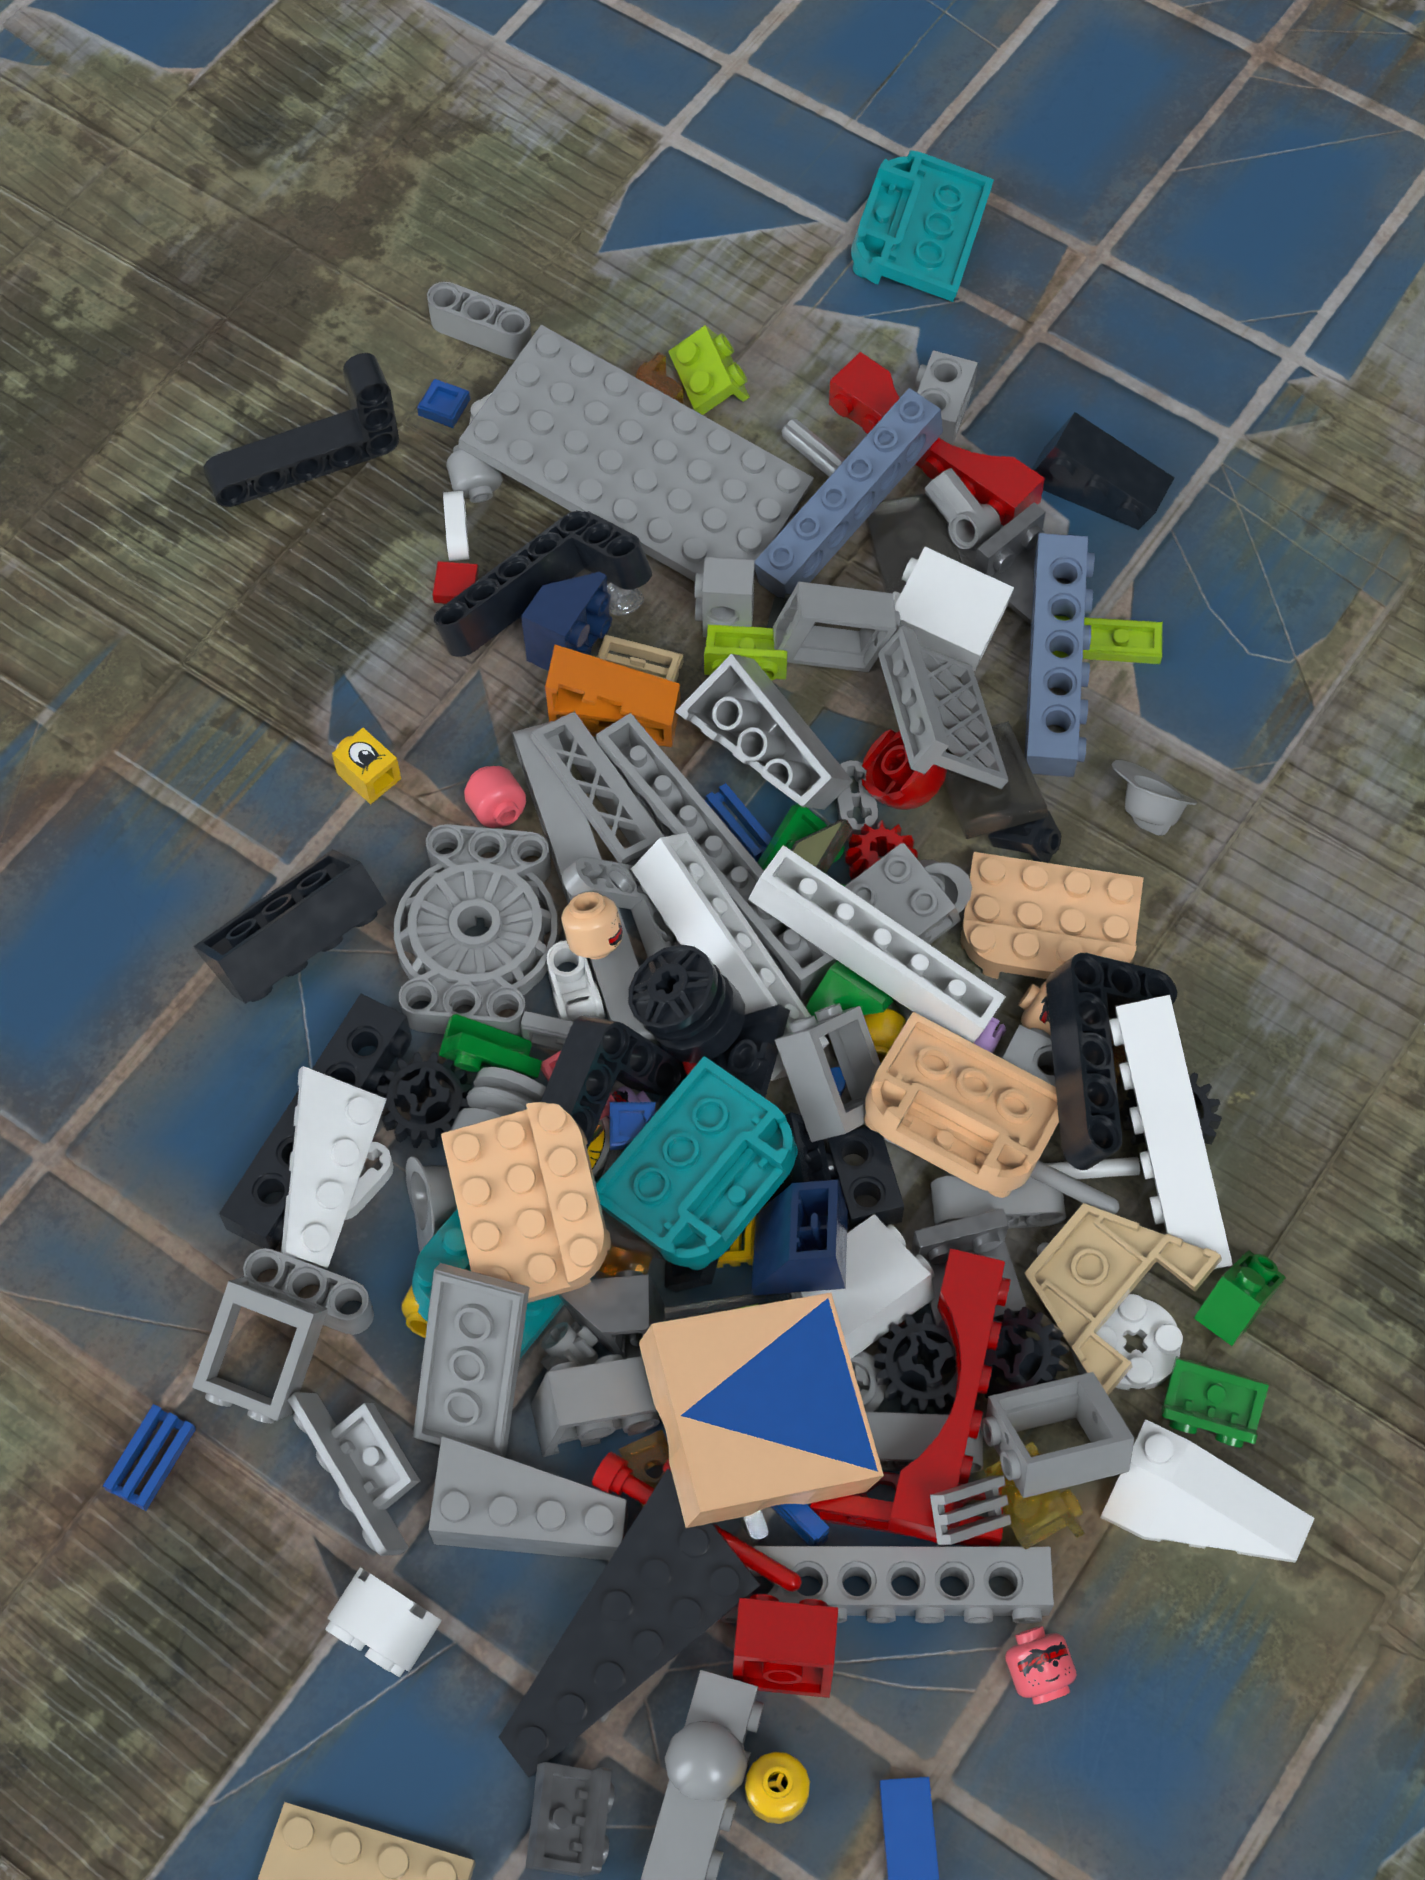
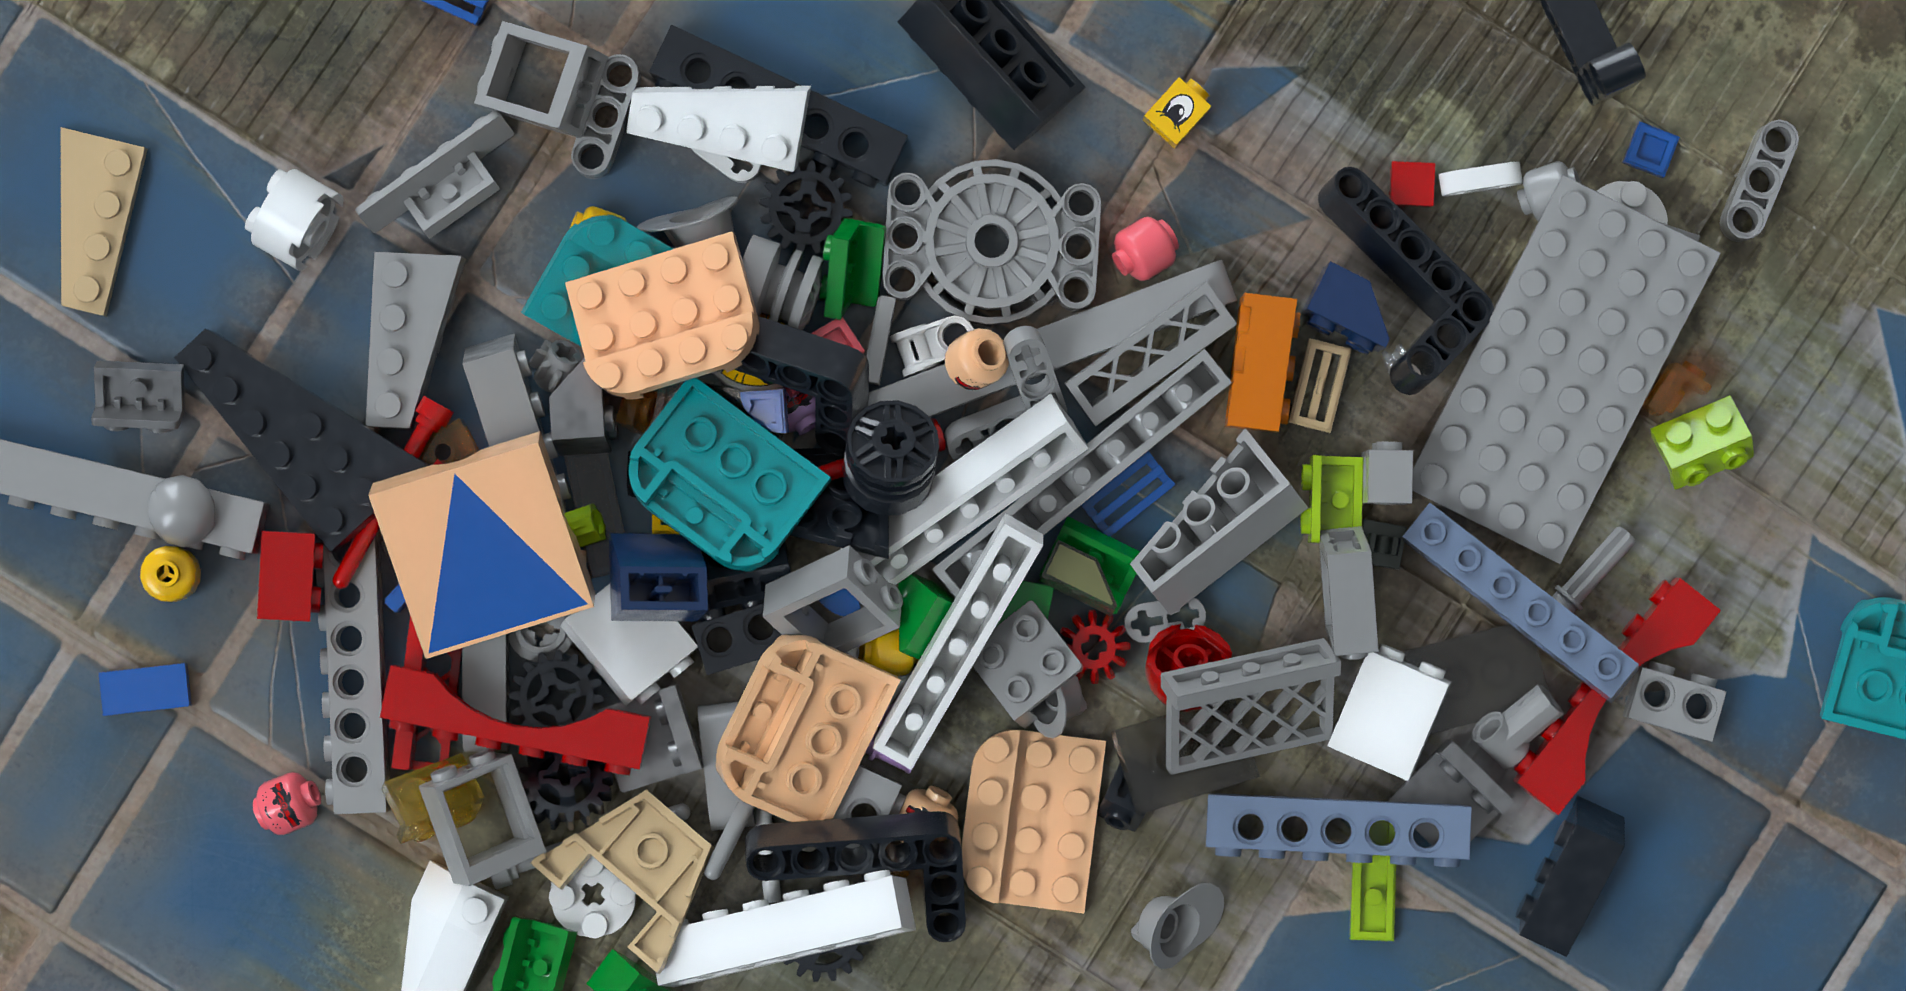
camera: 85 degrees right, 25 degrees up
(470, 1359) = (524, 277): light grey tile -> none
(991, 1505) = (393, 738): light grey tile -> none

